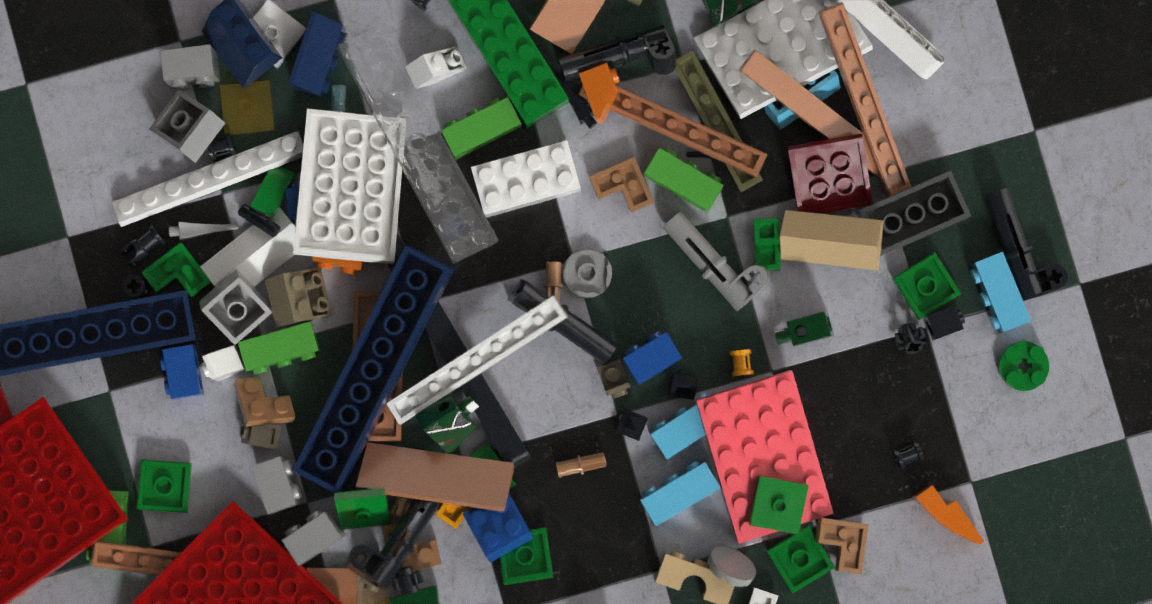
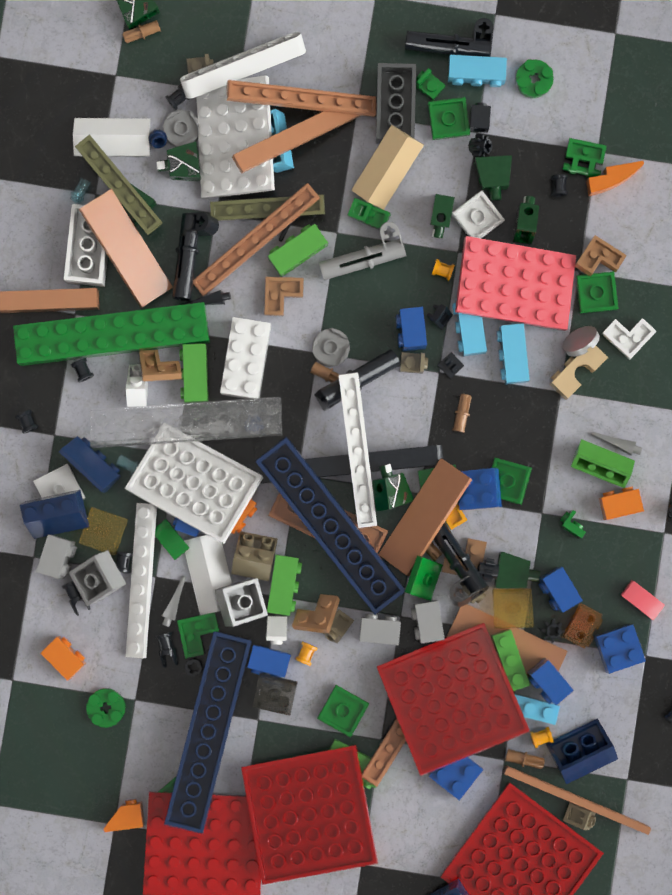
camera: 65 degrees left, 0 degrees up
(28, 205) = (99, 716): none -> green plate
(78, 131) = (63, 657): none -> orange brick
(146, 396) = (275, 694): none -> clear smoke plate
(155, 108) = (74, 596): none -> black piece
(211, 411) = (306, 653): none -> light orange bush
(259, 220) = (187, 558): black axle -> none
(462, 78) = (155, 370): none -> medium nougat plate
(600, 89) = (207, 277): orange slope -> none
(778, 504) = (553, 288): green plate -> none
(825, 375) = (478, 216): none -> white plate
(830, 175) = (342, 146): plate -> none
(840, 436) = (526, 221): none -> dark green torso
(884, 370) = (493, 174): none -> dark green torso
(956, 244) = (429, 84): none -> green bracket
(963, 469) = (585, 152): none -> green plate

